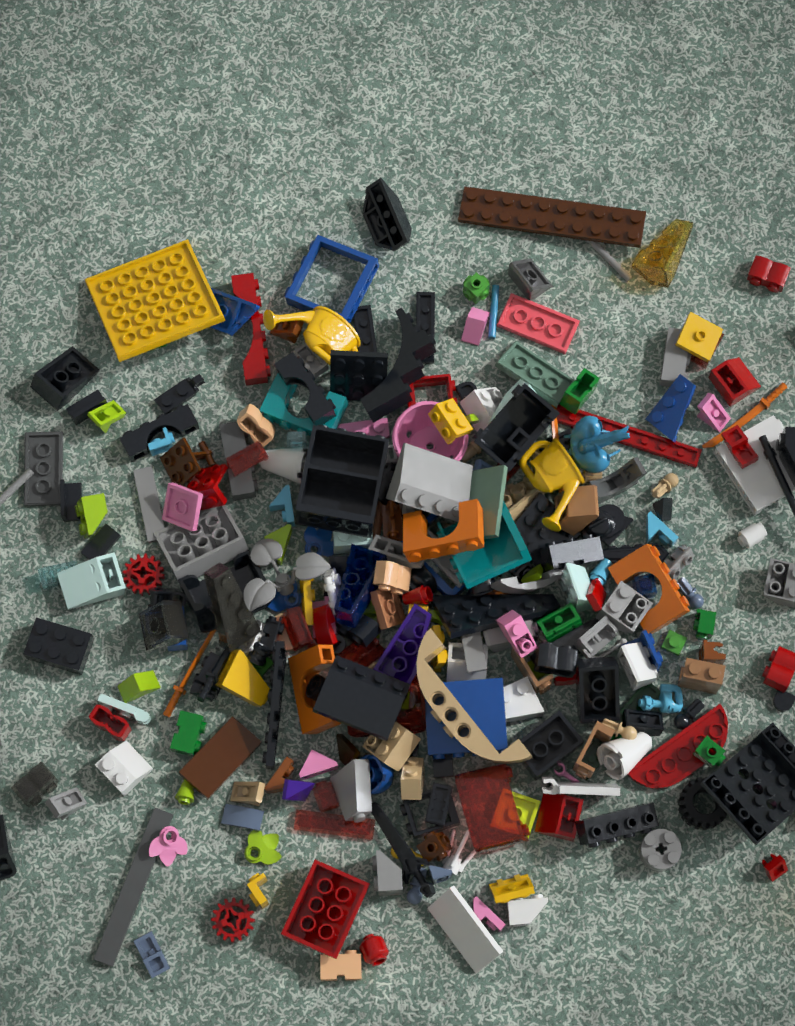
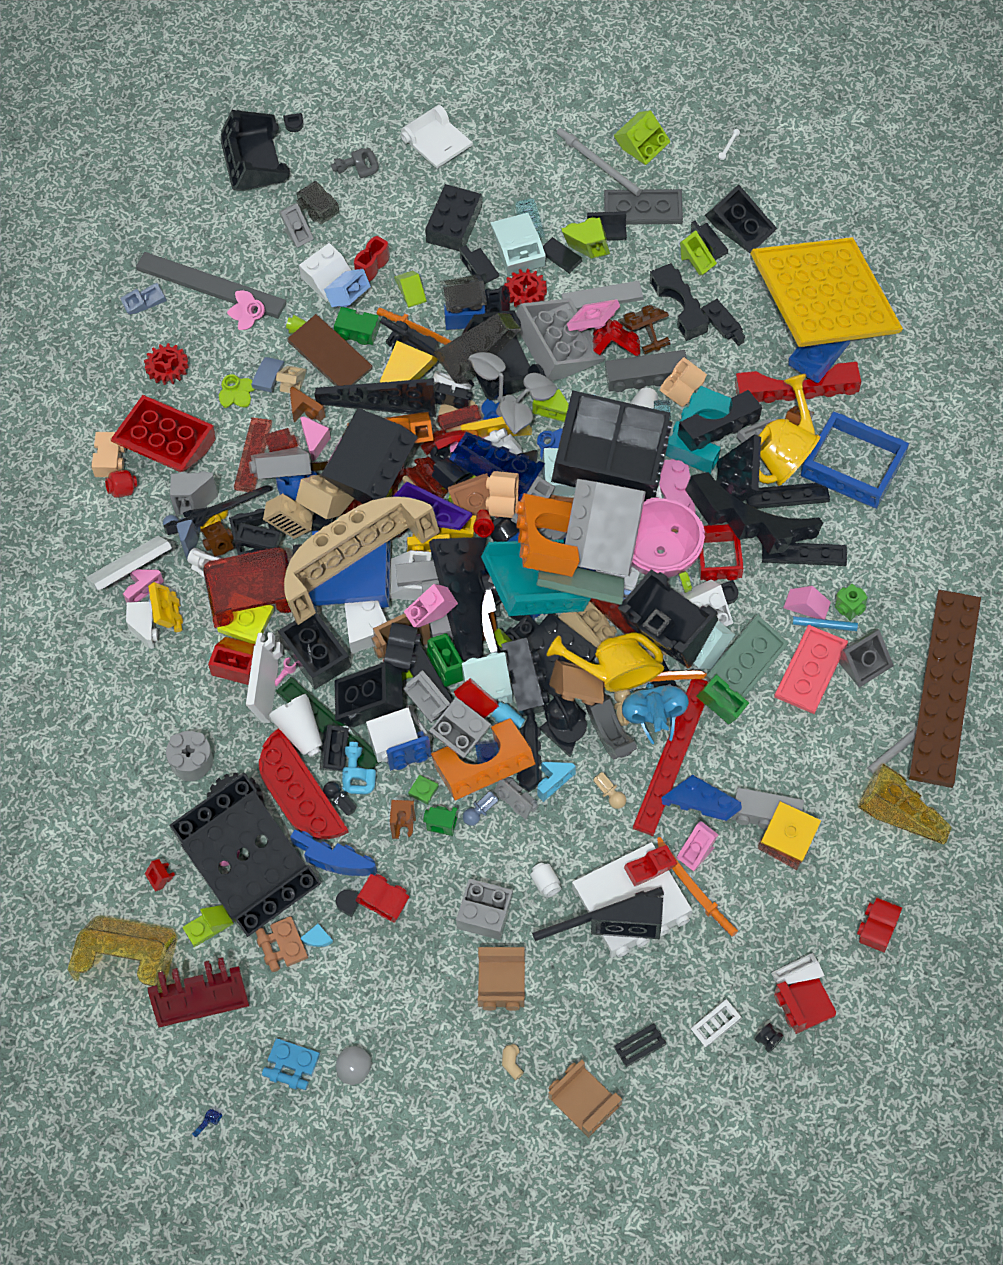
camera: 95 degrees right, 10 degrees down
(113, 621) = (478, 263): none -> black panel
(126, 710) = (385, 275): light aqua hinge -> none
(148, 743) = (347, 288): none -> light blue brick
(161, 445) = (666, 303): medium azure bracket -> none
(246, 458) = (642, 366): clear red hinge -> none
(256, 894) = (188, 379): yellow bracket -> none
(259, 654) = (428, 372): black wheel -> none
(296, 790) = (287, 412): dark purple slope -> none
(385, 216) = (937, 515): black wedge -> none
(449, 420) = (677, 549): yellow bracket -> none
(600, 732) = (317, 687): medium nougat panel -> none
(616, 824) = (219, 708): black brick -> none
(626, 732) = (318, 724): tan axle -> none
(663, 508) = (579, 785): black slope -> none
(701, 676) = (376, 804): medium nougat panel -> none
(703, 754) = (293, 815): green brick -> none
(733, 381) = (739, 873): red slope -> none
(748, 708) = (339, 860): none -> blue slope

